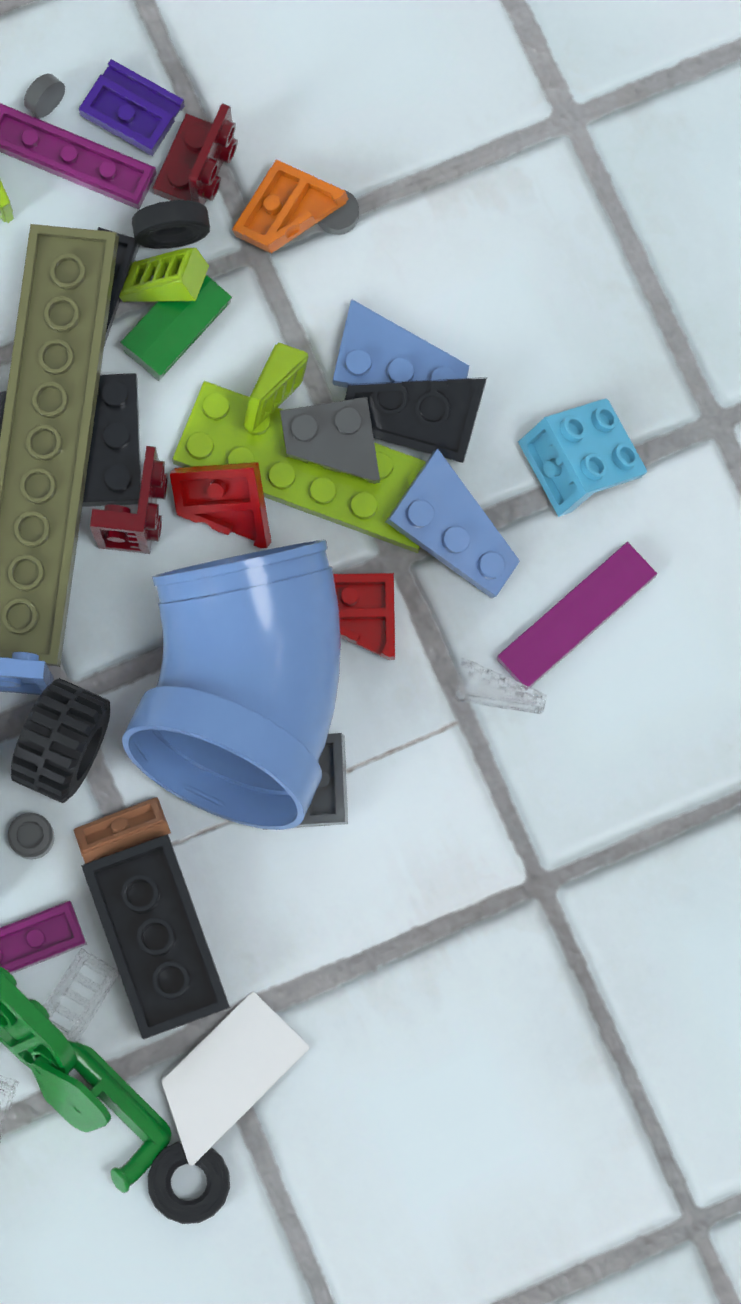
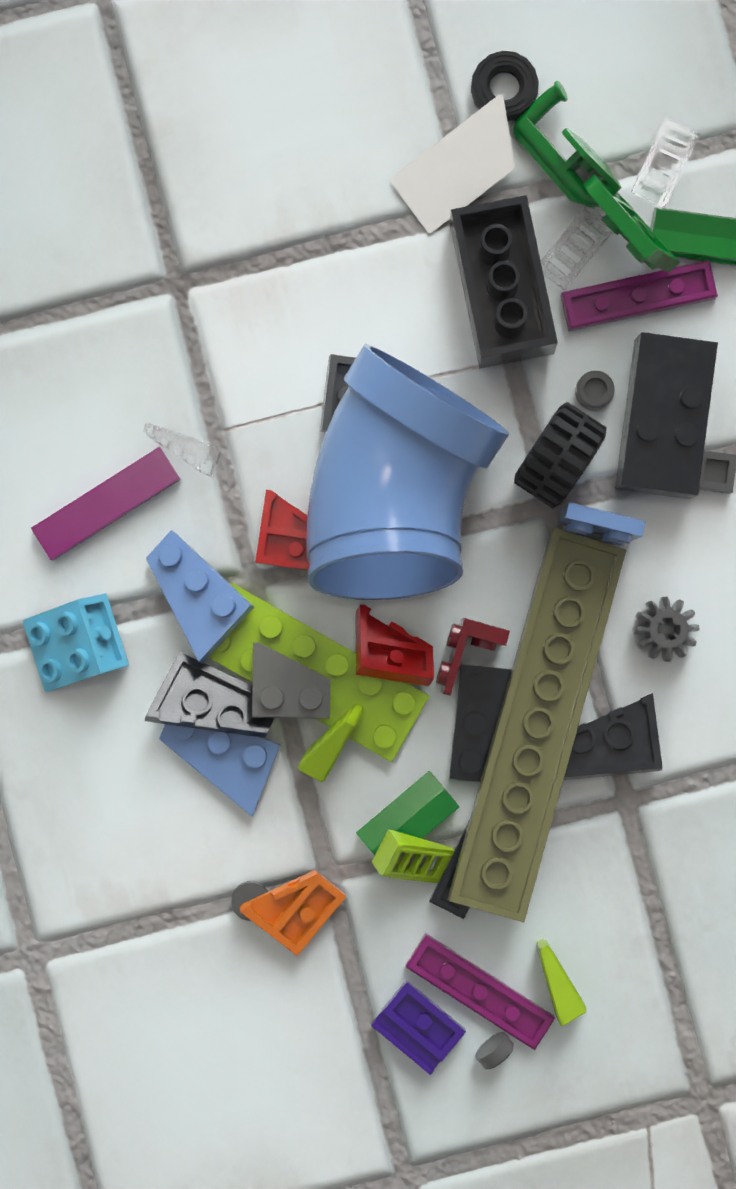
camera: 170 degrees left, 10 degrees up
(122, 830) = (518, 378): nougat plate -> none
(170, 224) = (399, 906): black tyre -> none
(197, 158) = (369, 968): dark red bracket -> none

